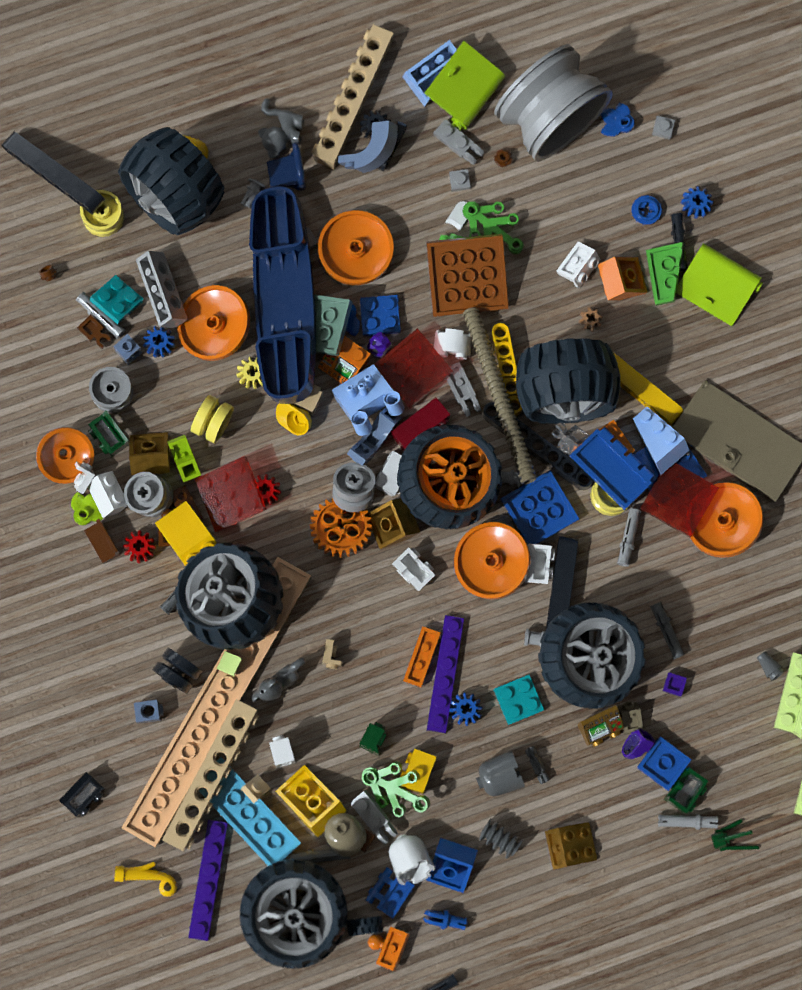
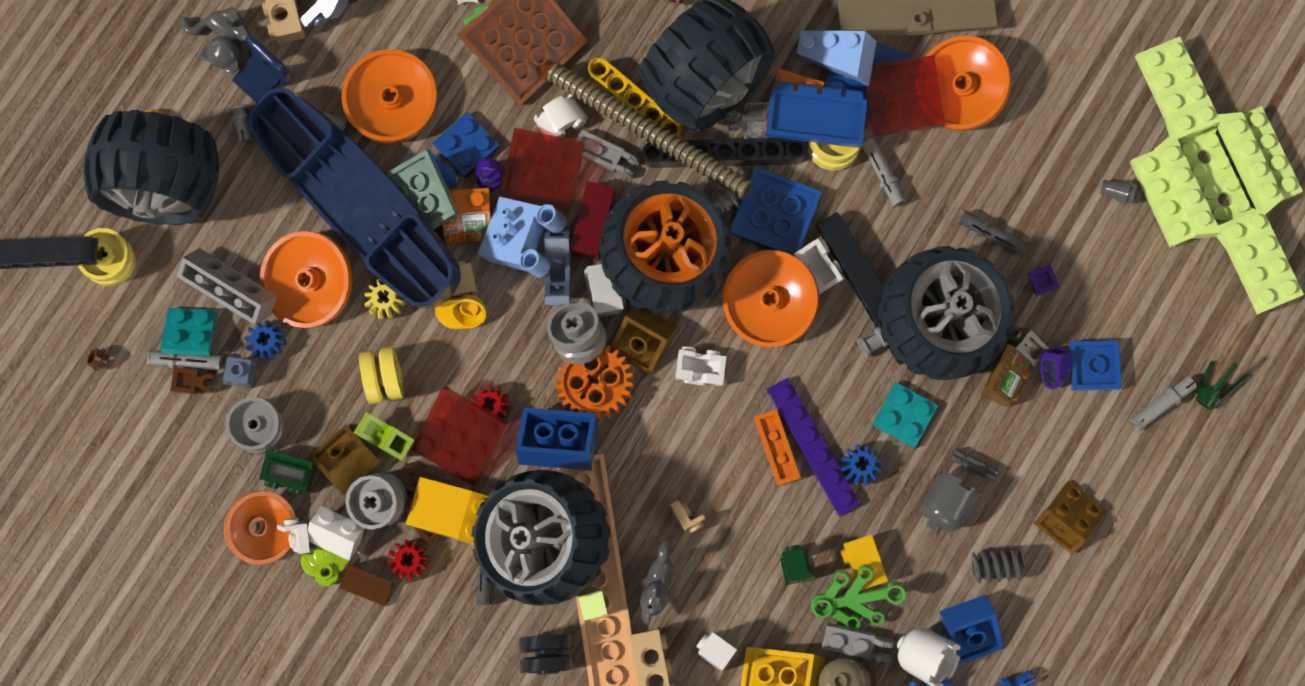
camera: 30 degrees left, 0 degrees up
(289, 543) = (557, 439): none -> blue brick
(647, 393) = (794, 18): yellow beam -> none
(686, 790) = (1138, 374): dark green window -> none

